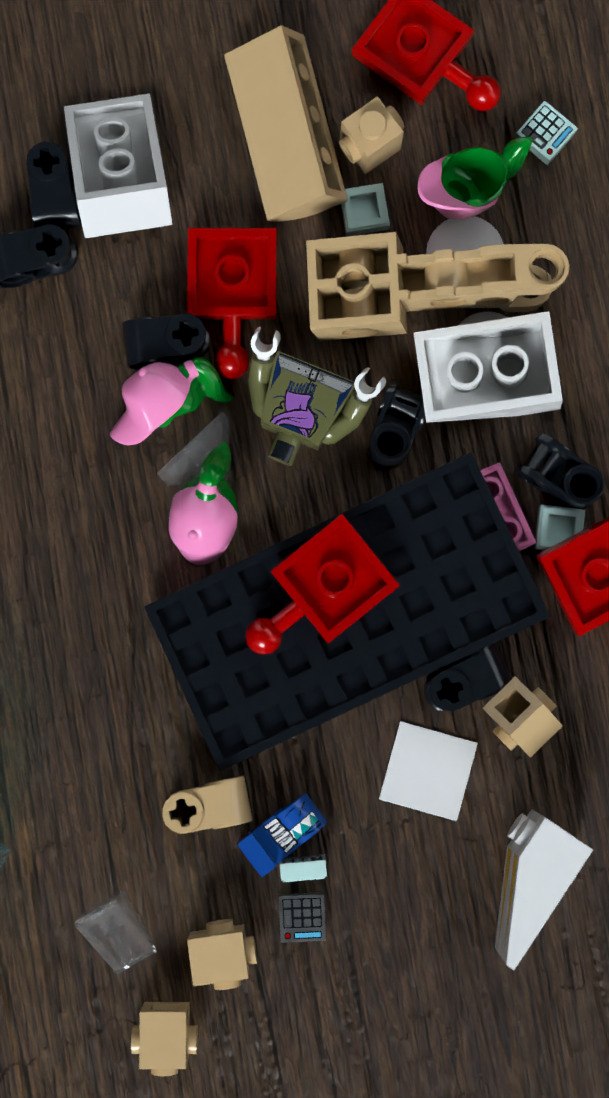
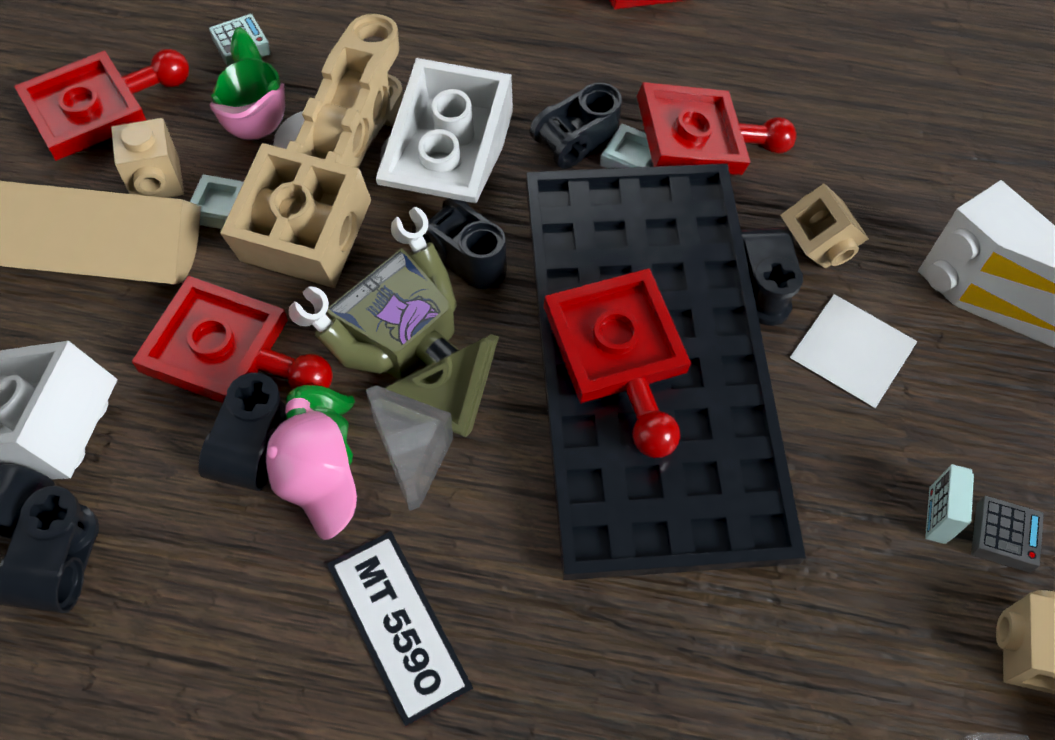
camera: 75 degrees left, 25 degrees down
(77, 506) = (399, 628): none -> white sticker
(205, 511) = (478, 453): bright pink hair -> none
(216, 804) = (850, 583): tan piece -> none
(253, 465) = (453, 383): none -> olive tile
(281, 833) = (901, 518): blue leg -> none

